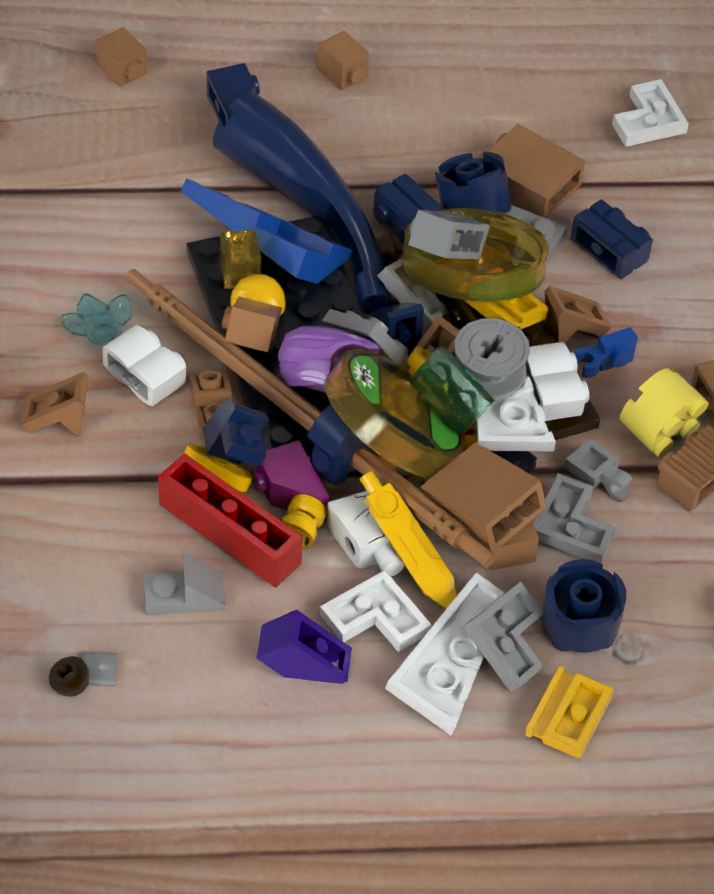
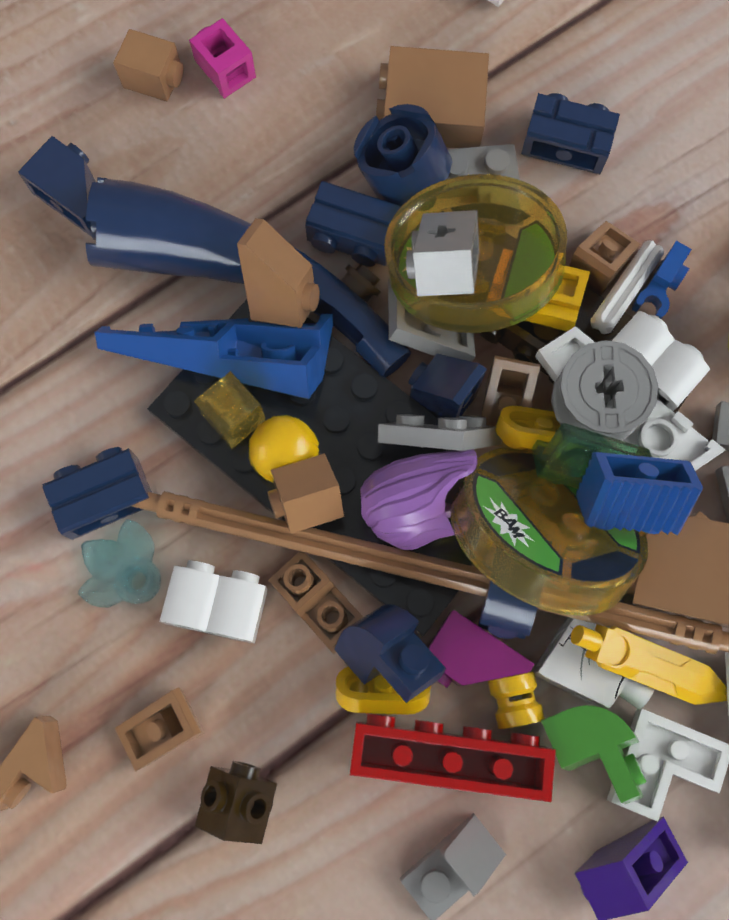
camera: 30 degrees left, 25 degrees up
(72, 467) = (236, 803): none -> dark brown brick
(108, 265) = (96, 493): none -> dark blue brick
(326, 198) = (276, 277): none -> medium nougat slope
(335, 562) = (596, 733): none -> bright green brick
(398, 80) = (223, 57): none -> dark pink brick
(461, 407) = (638, 493): none -> blue brick
(572, 338) = (627, 287): none -> white axle

